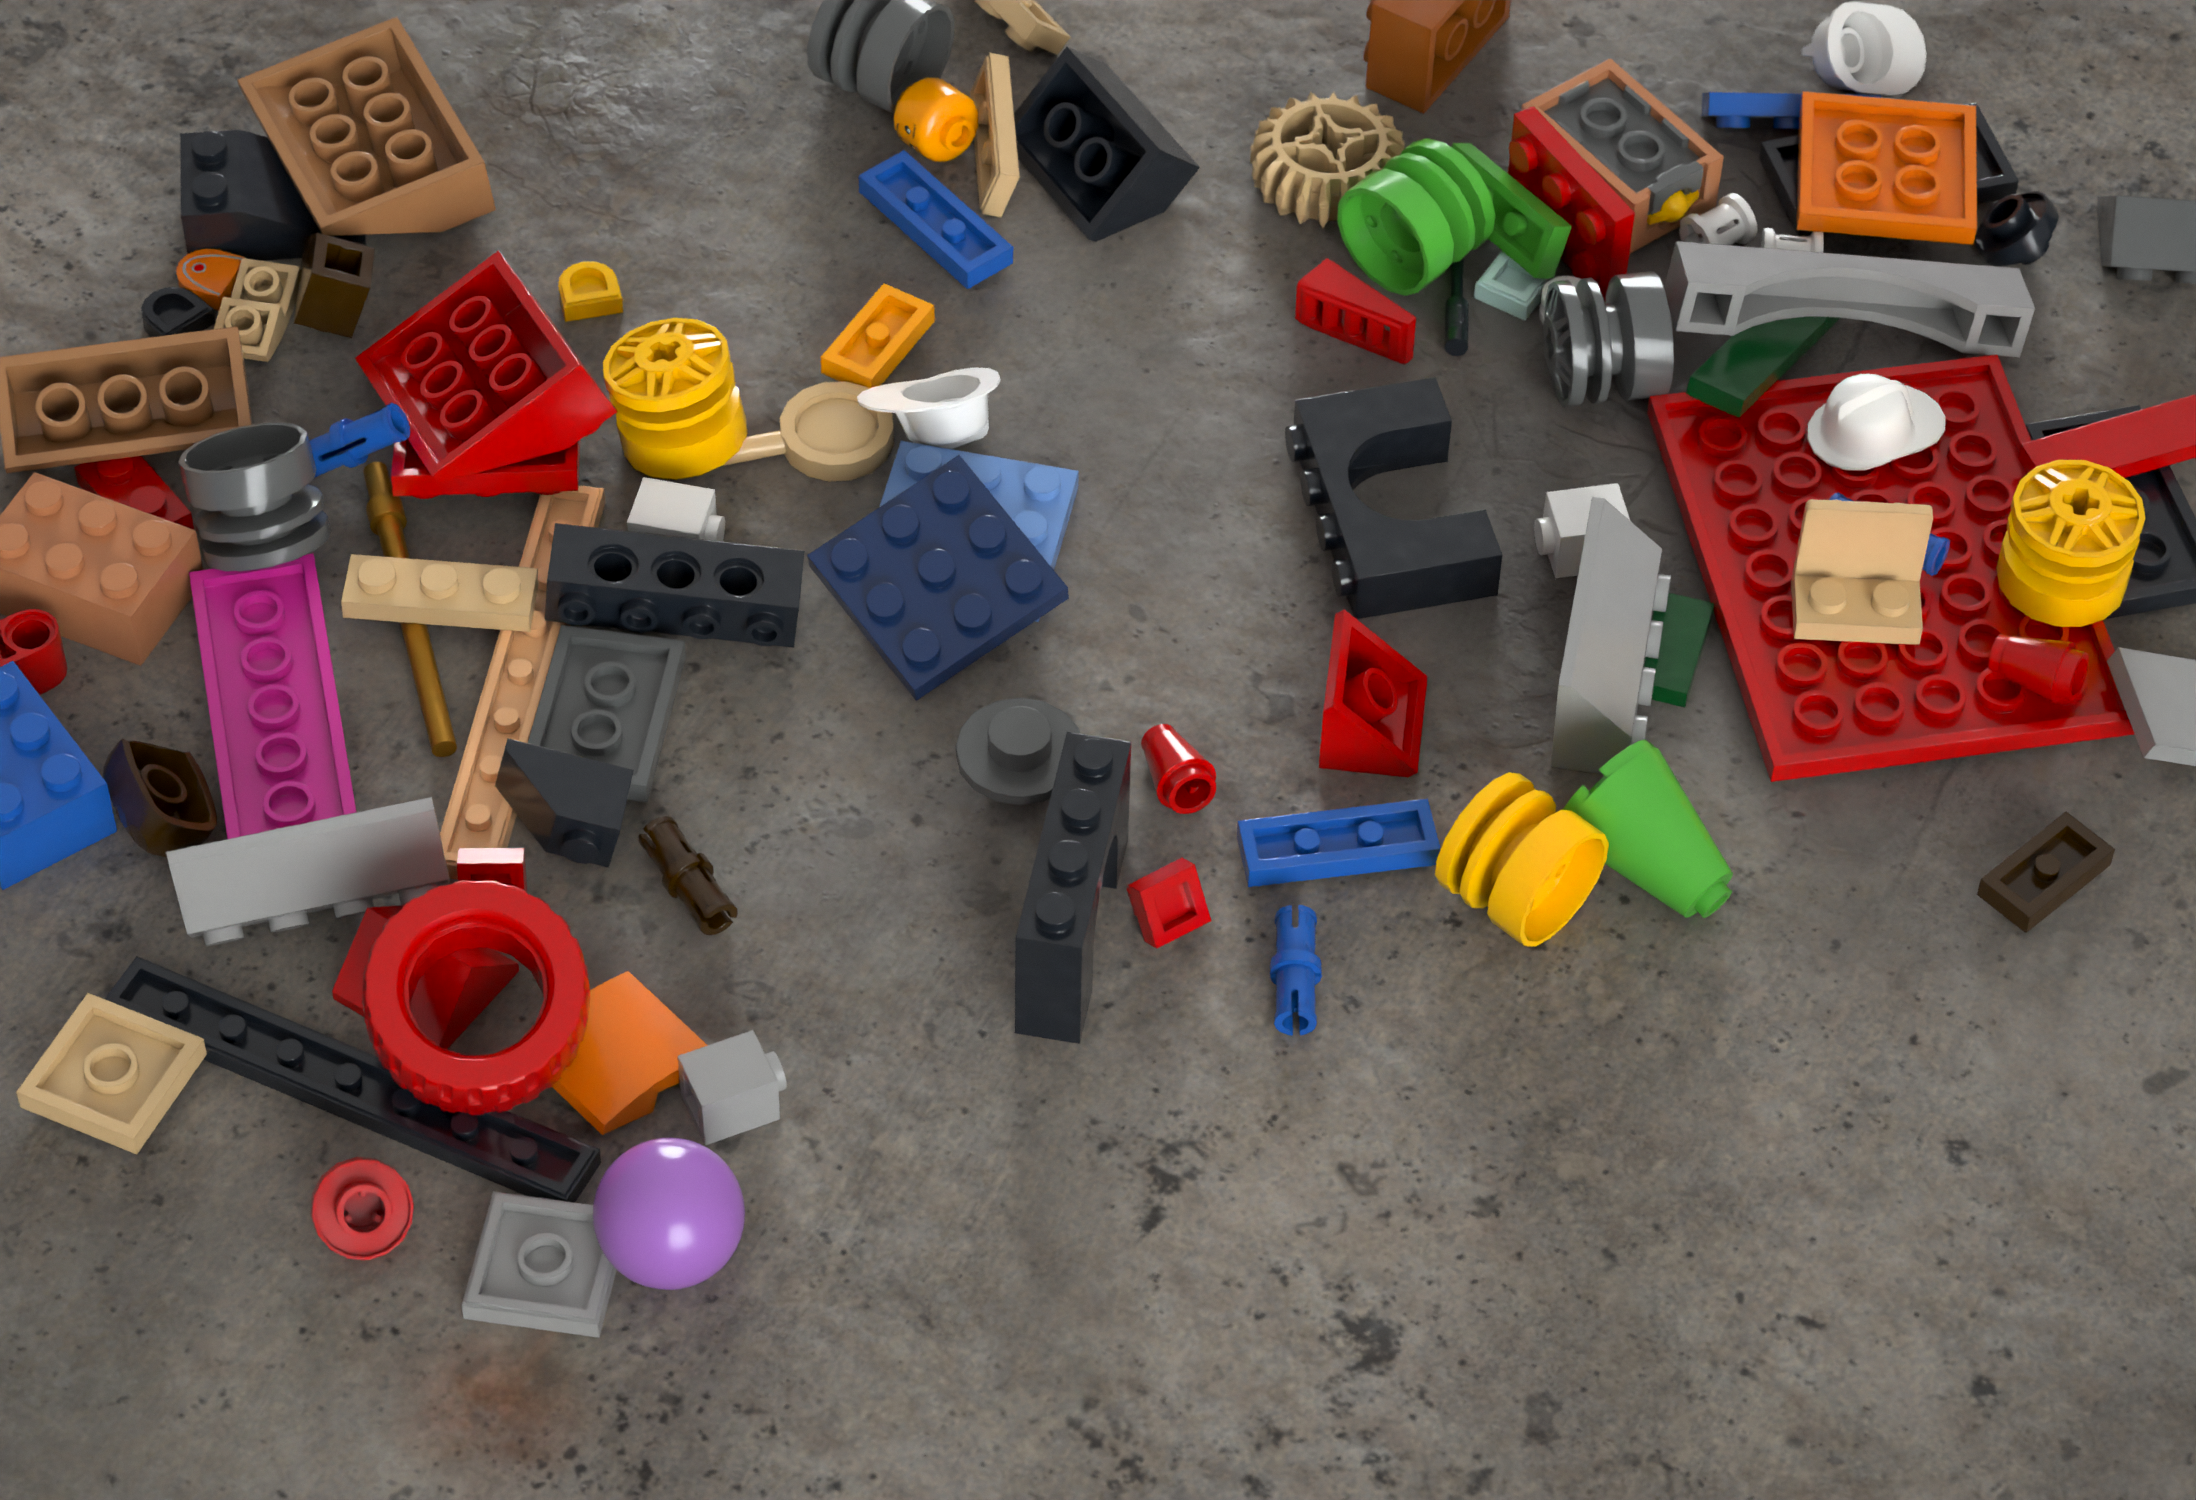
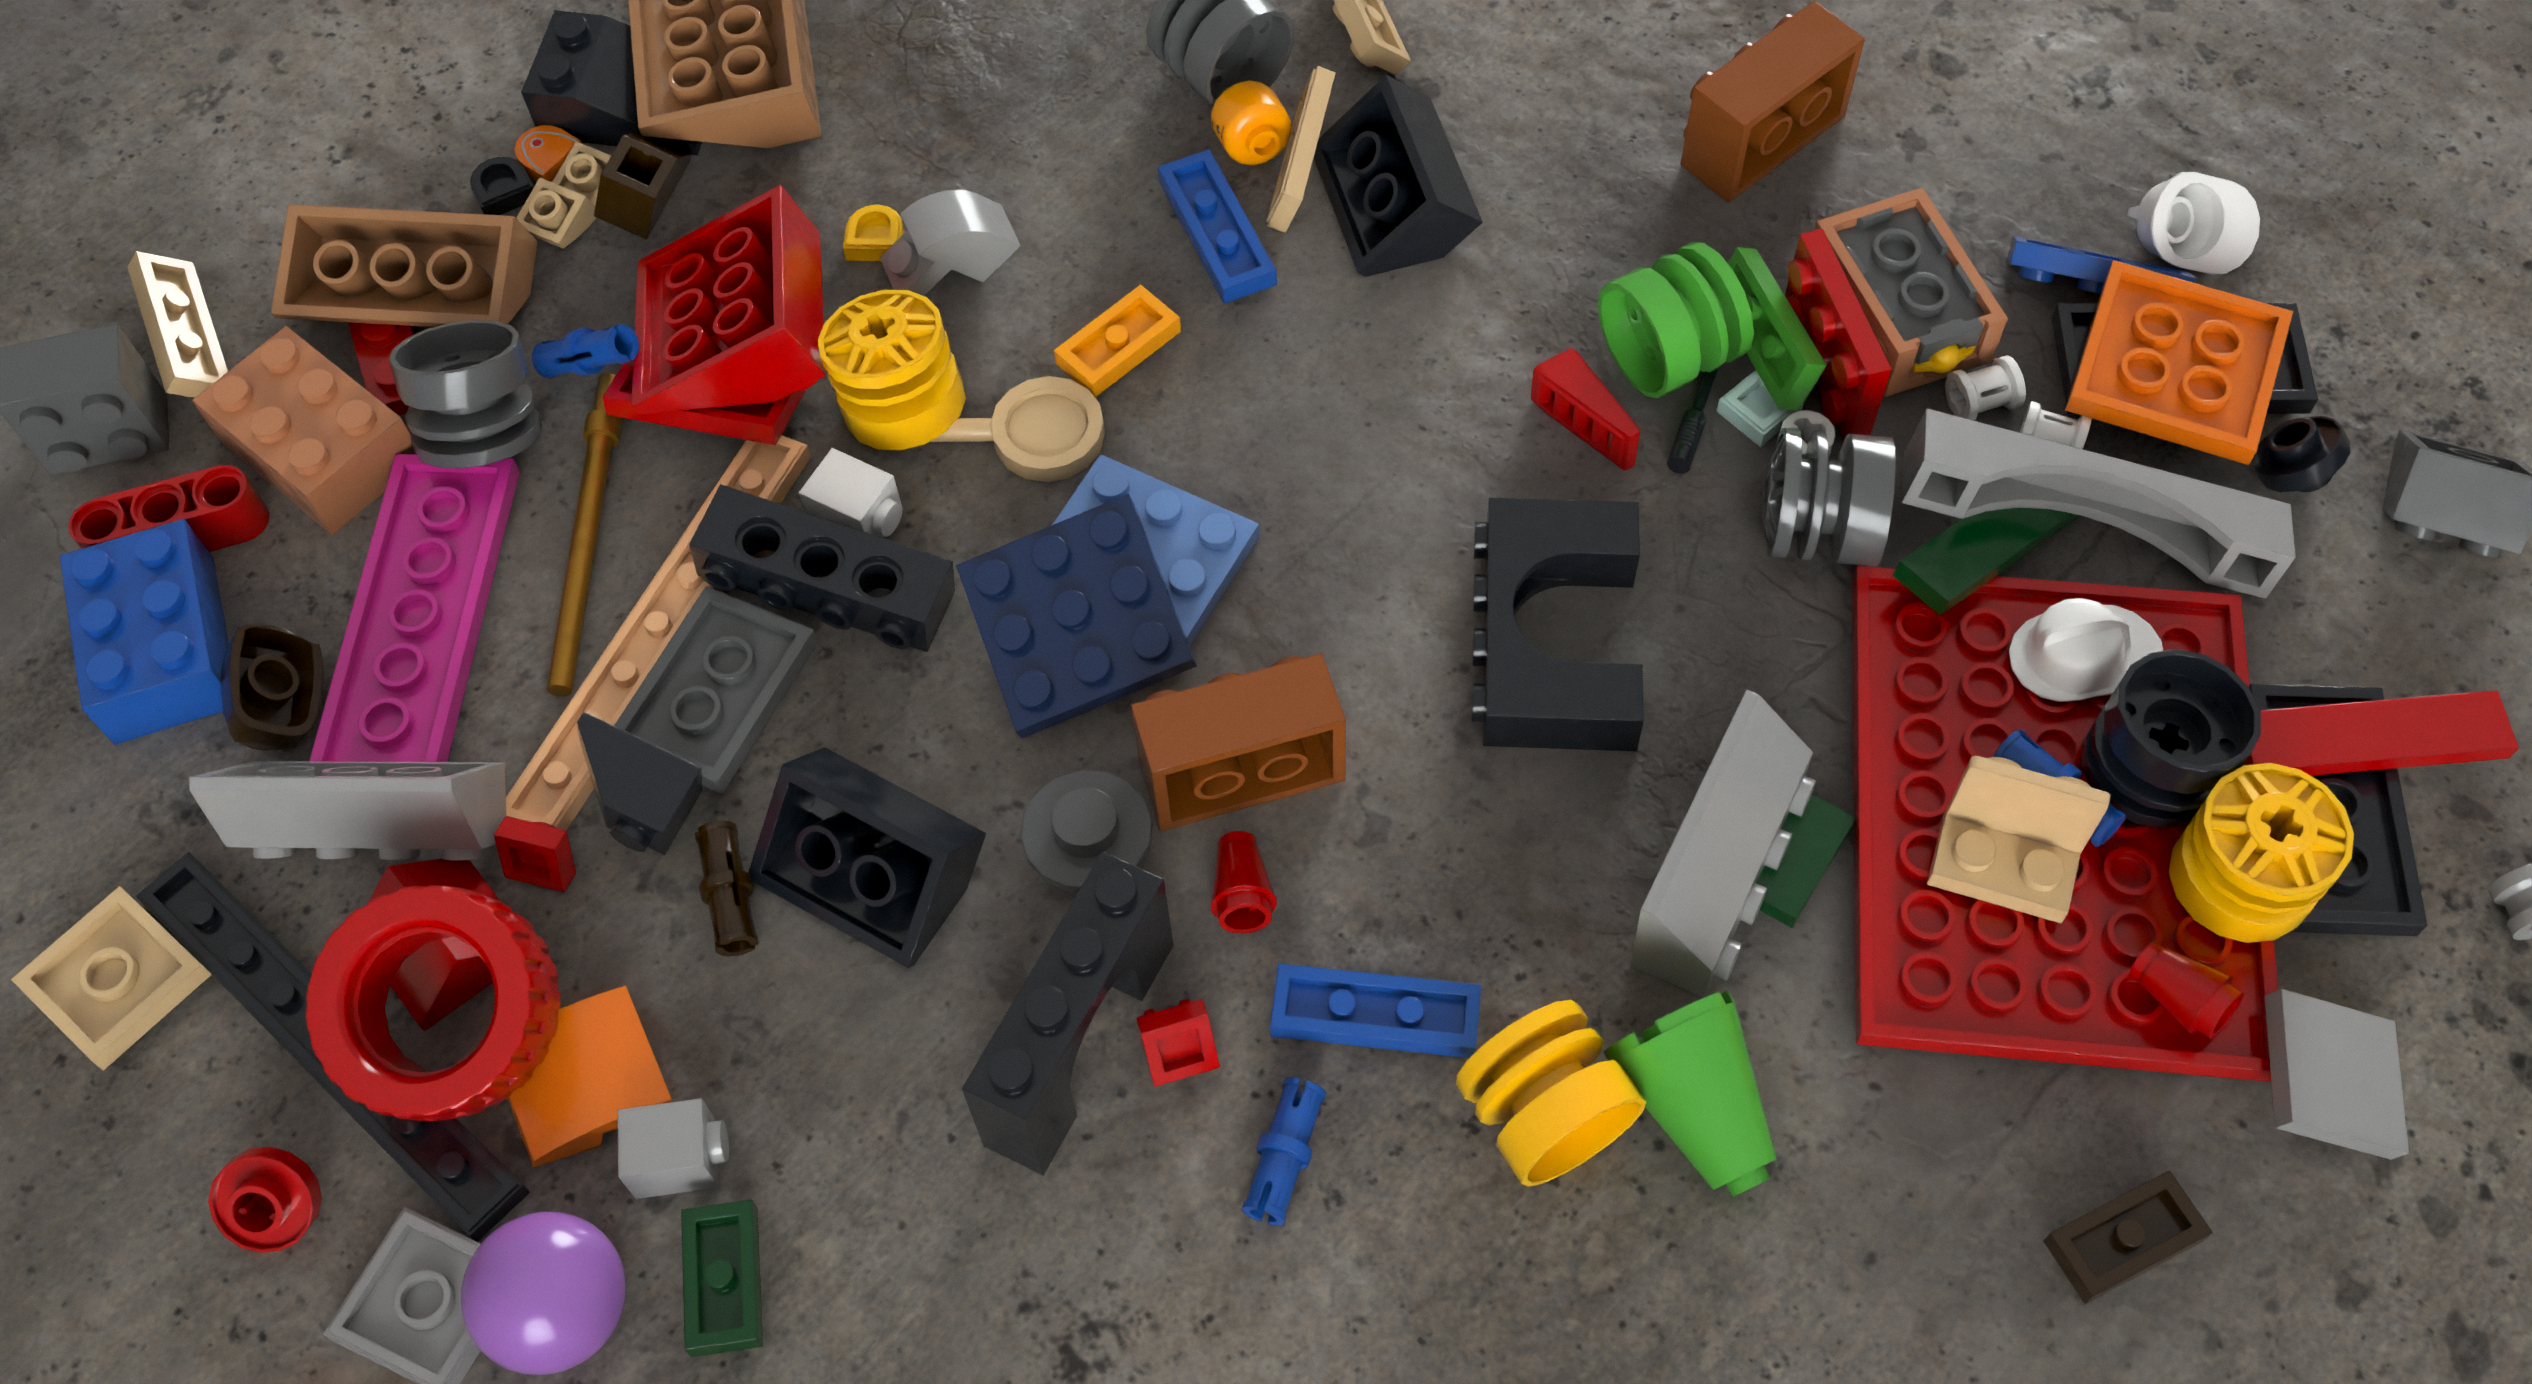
camera: 20 degrees right, 10 degrees up
(440, 593) = (606, 526): tan plate -> none
(675, 270) = (948, 233): none -> light grey brick
(812, 818) = (863, 854): none -> black slope
(821, 1177) = (721, 1278): none -> dark green plate
(940, 409) = (1140, 428): white piece -> none
(1141, 643) = (1240, 740): none -> dark orange brick
(1319, 151) = (1607, 229): tan gear -> none
(1370, 704) = (1459, 856): red slope -> none
(1565, 524) = (1725, 687): white brick -> none
(1968, 462) = (2170, 736): none -> black wheel

